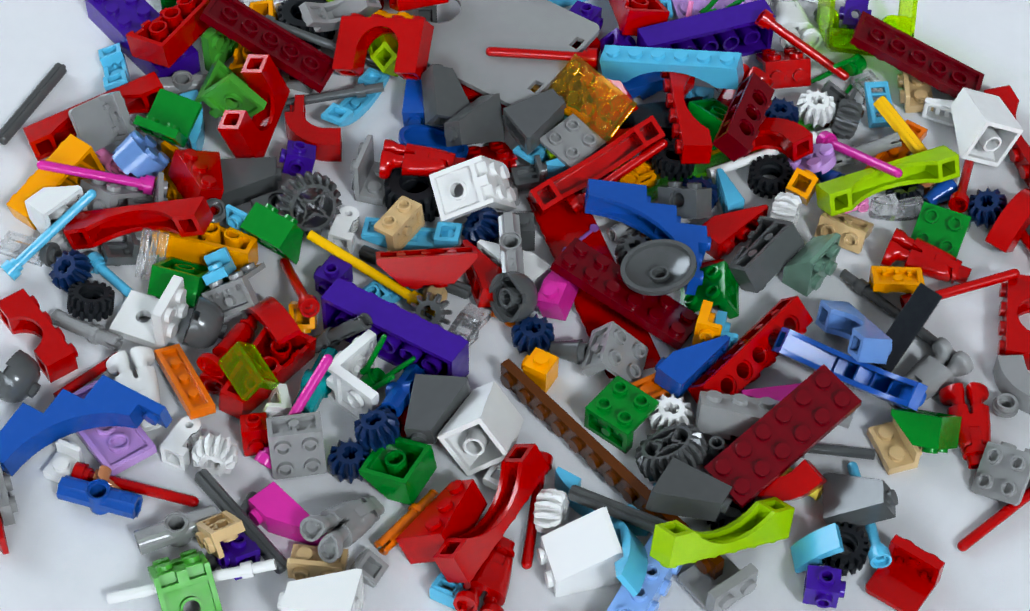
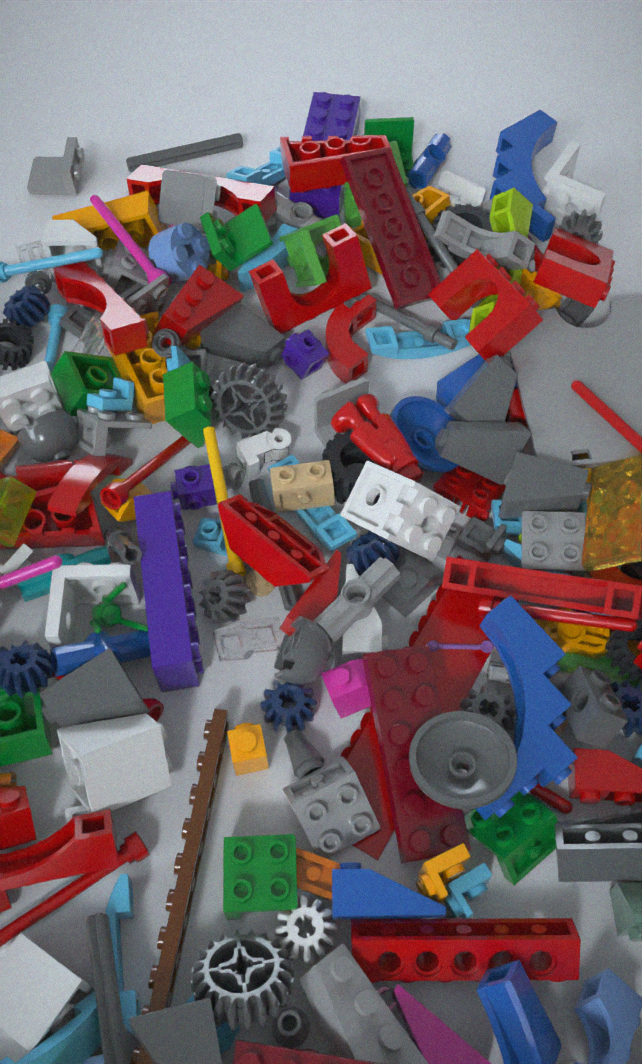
camera: 50 degrees right, 10 degrees up
(550, 510) = (64, 914): white gear -> none

